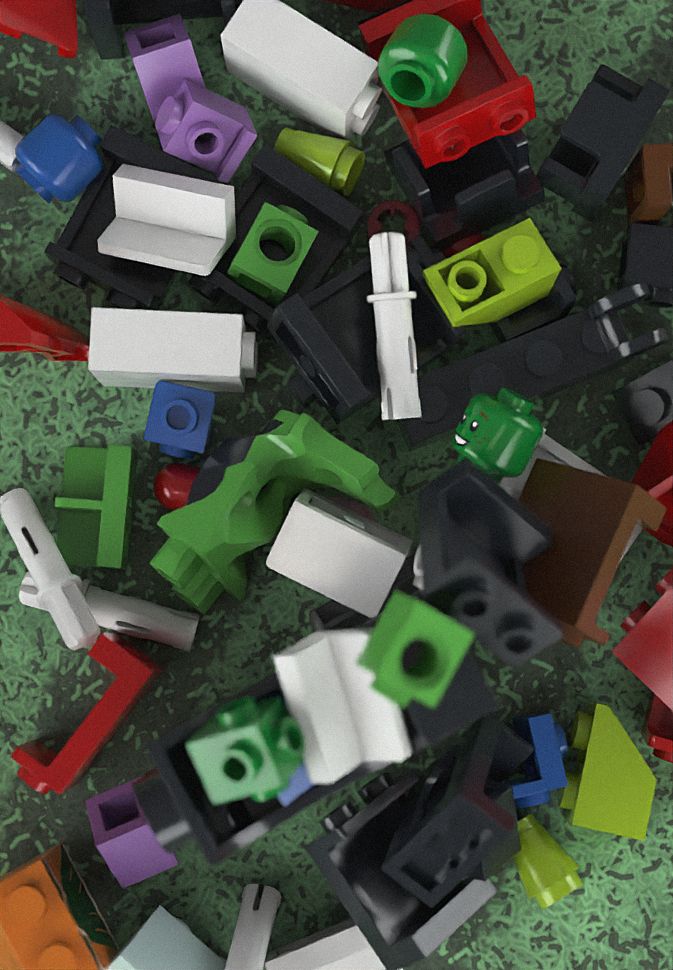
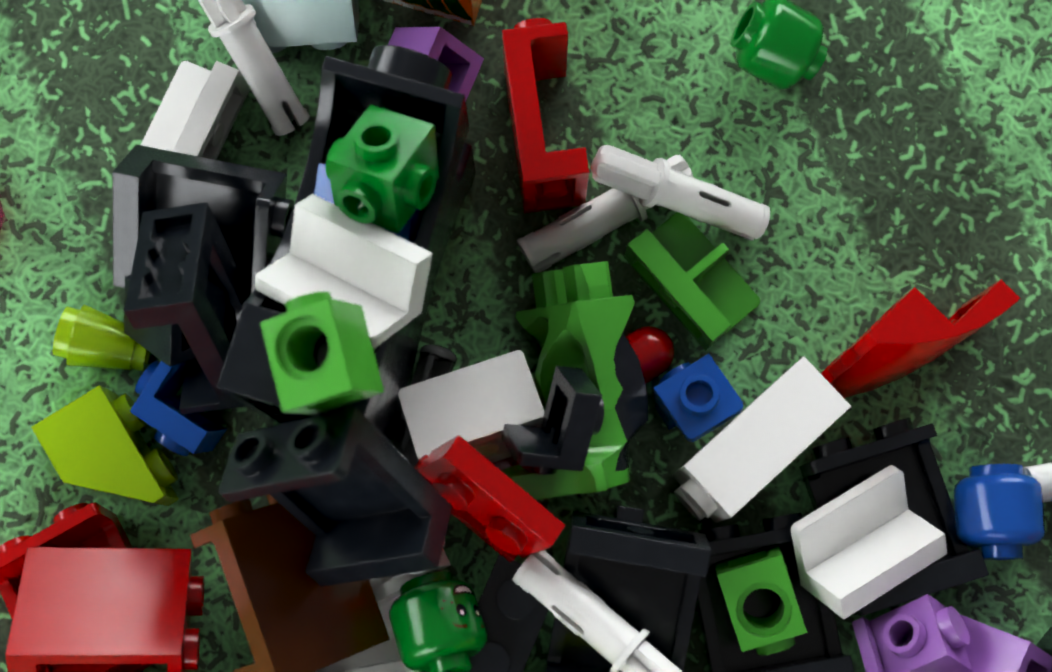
camera: 140 degrees right, 5 degrees down
(290, 476) = (569, 421): none -> black bracket
(389, 479) = (489, 500): none -> red plate

